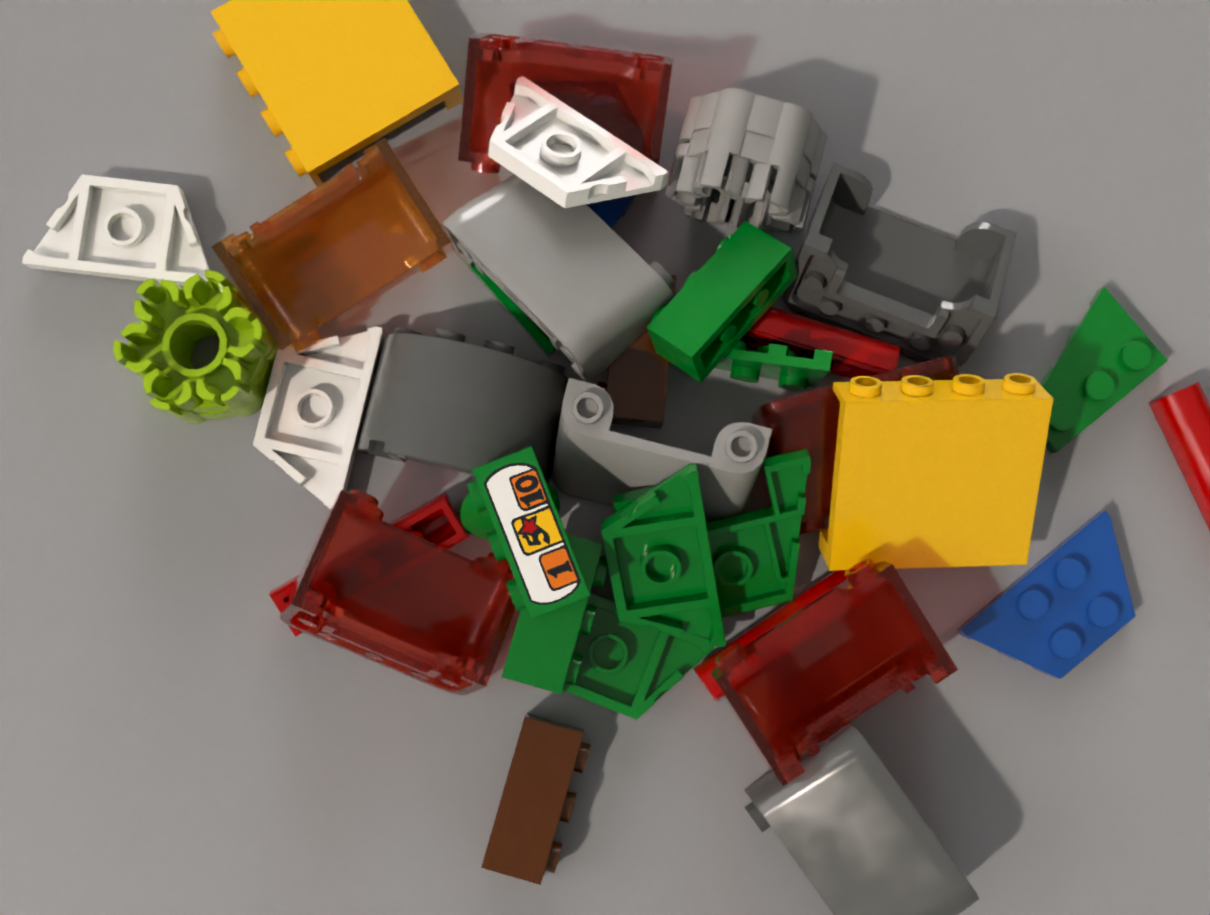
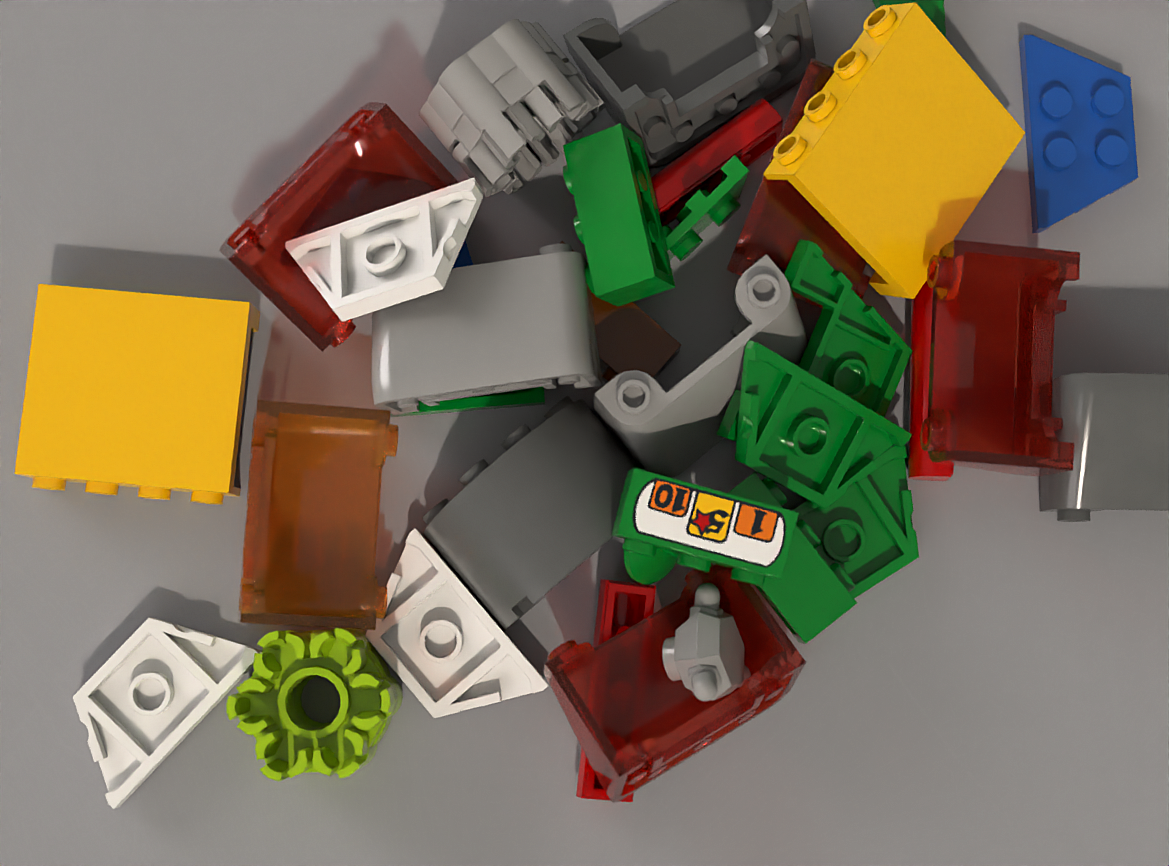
camera: 50 degrees left, 0 degrees up
(444, 607) = (706, 649): none -> light grey rock
(536, 799) = (924, 693): reddish brown brick -> none

